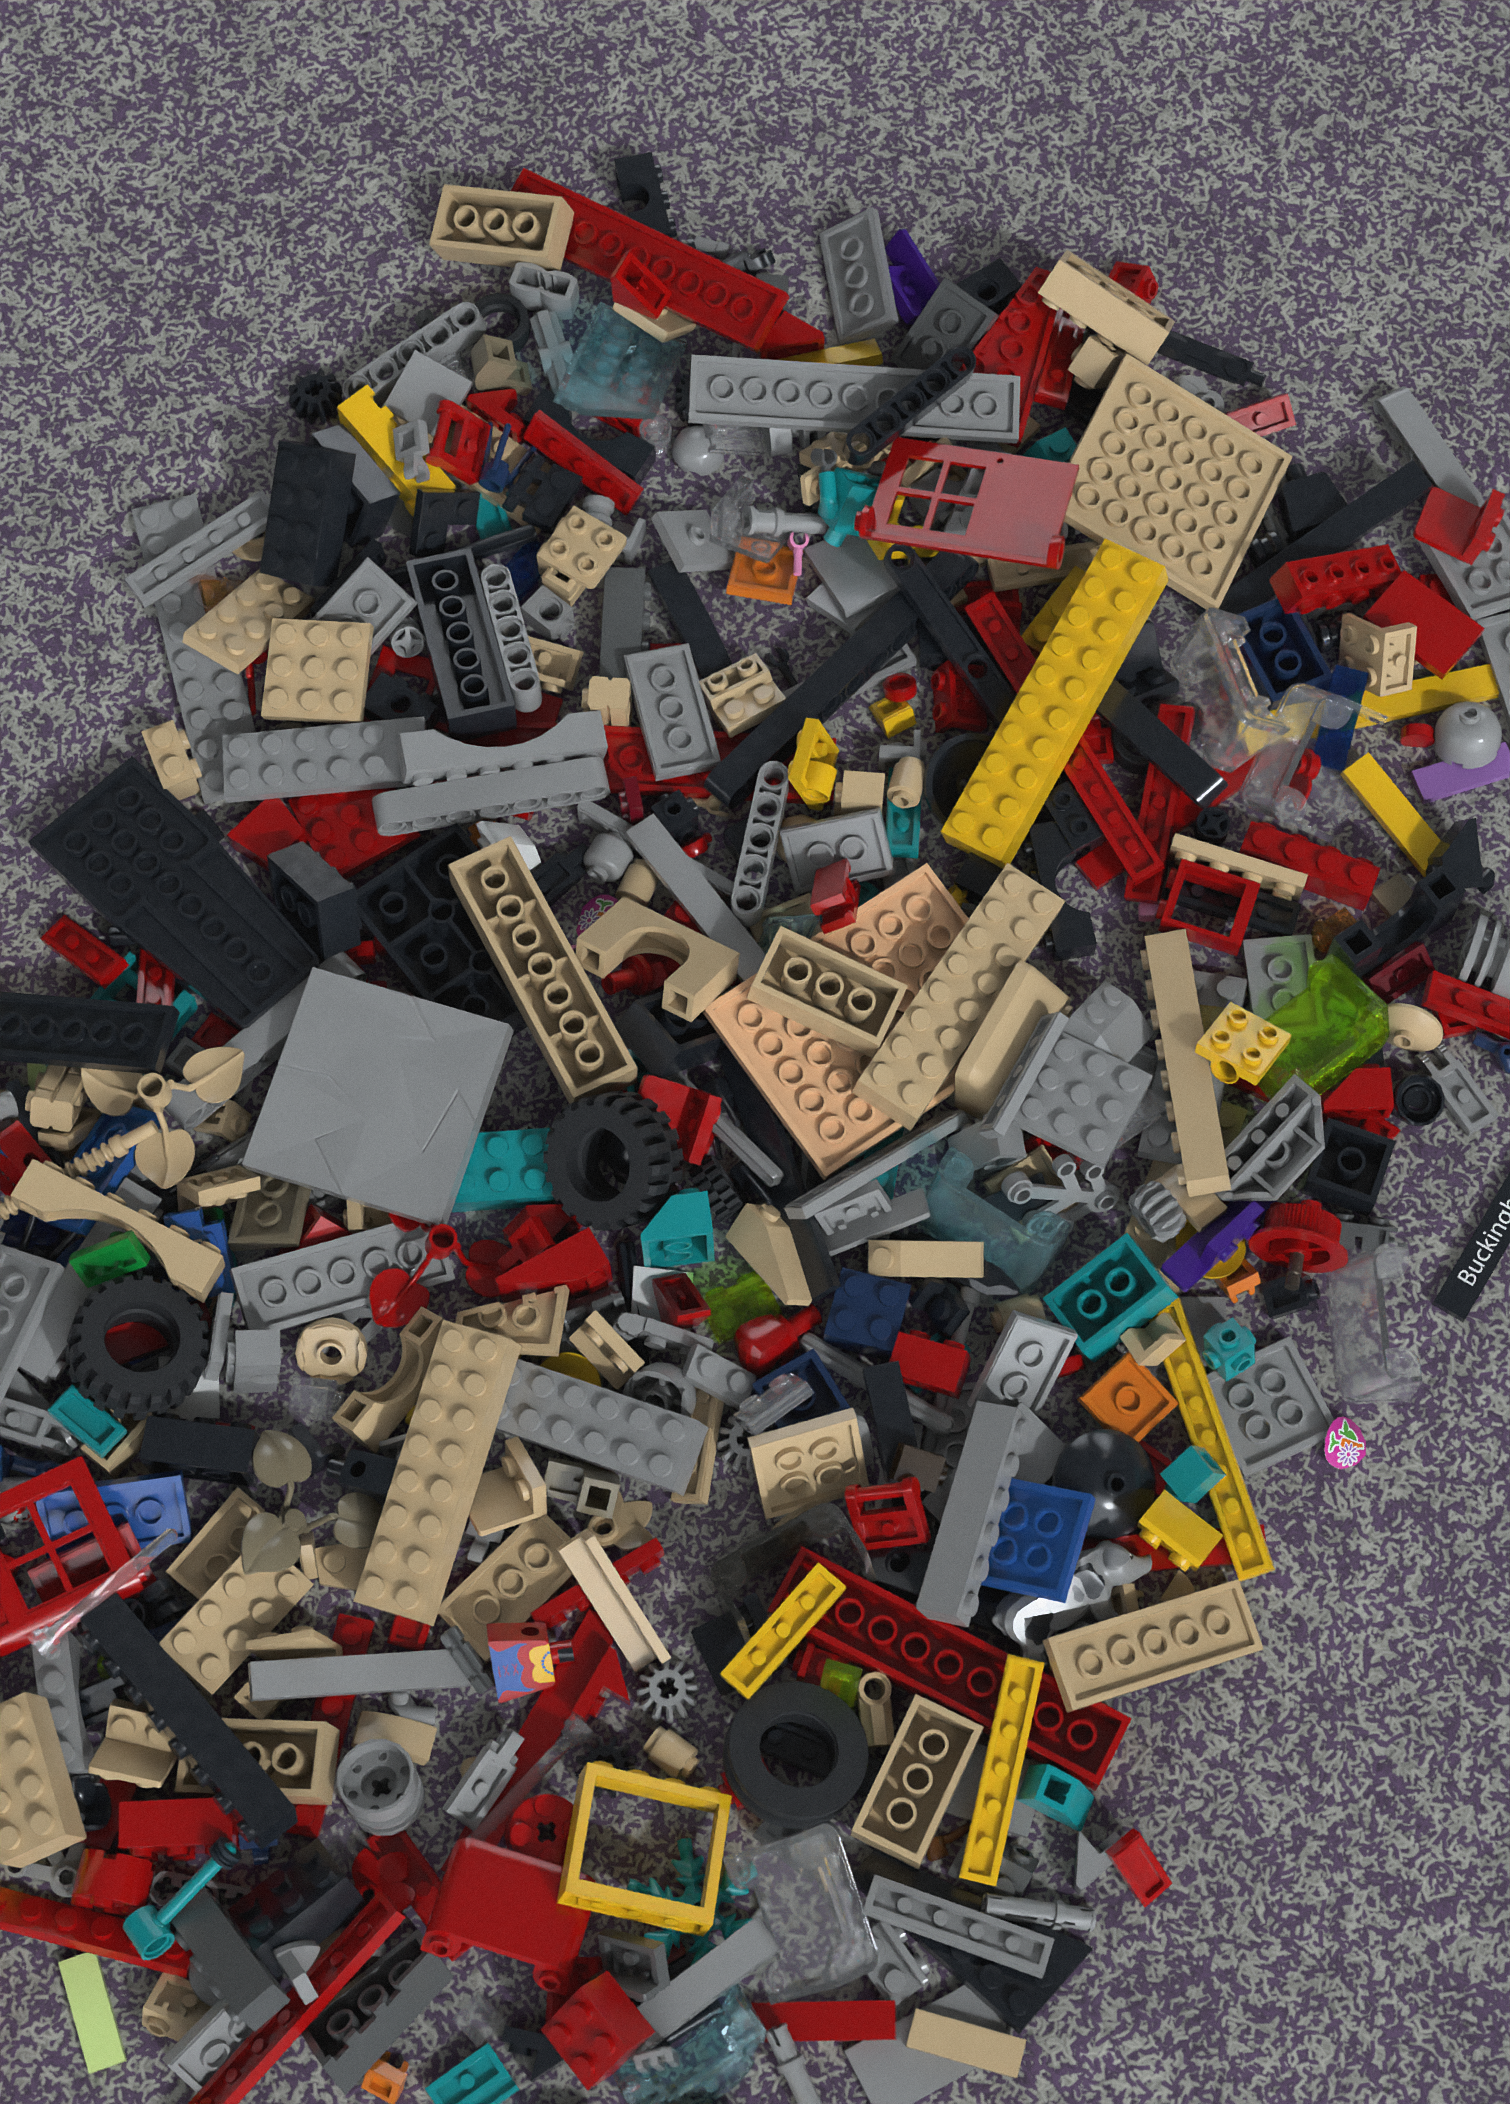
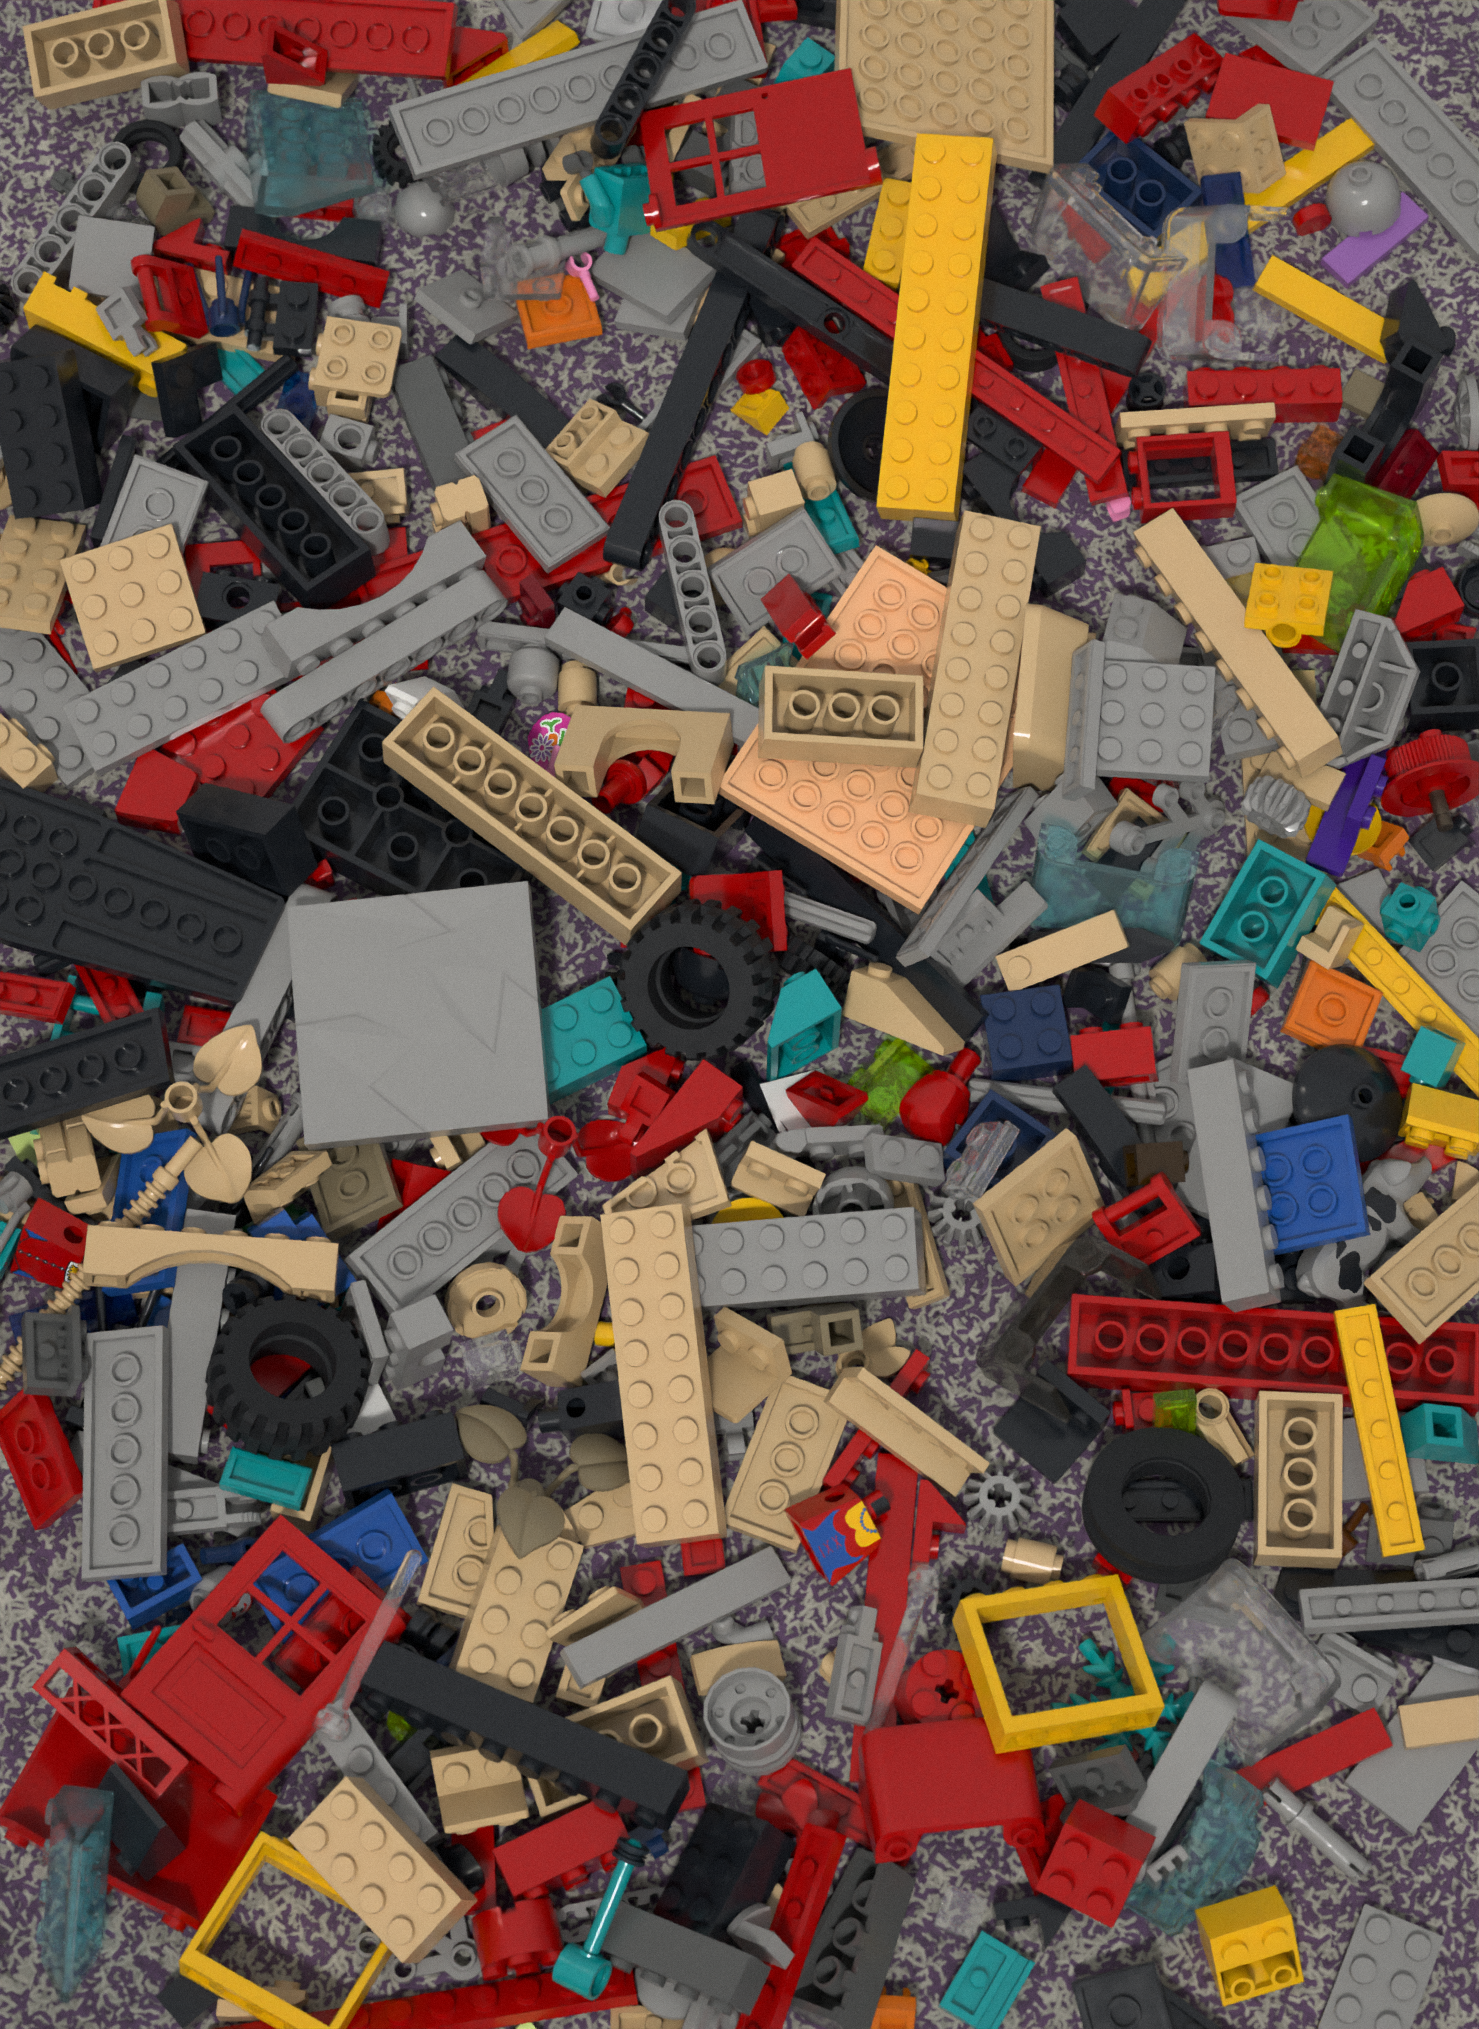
camera: 25 degrees left, 0 degrees up
(109, 1258) = (216, 1297): green tile -> none
(409, 644) = (217, 530): light grey wheel -> none
(467, 1659) = (778, 1556): dark grey axle -> none
(783, 1631) = (1096, 1385): yellow plate -> none
(813, 766) = (712, 495): yellow plate -> none

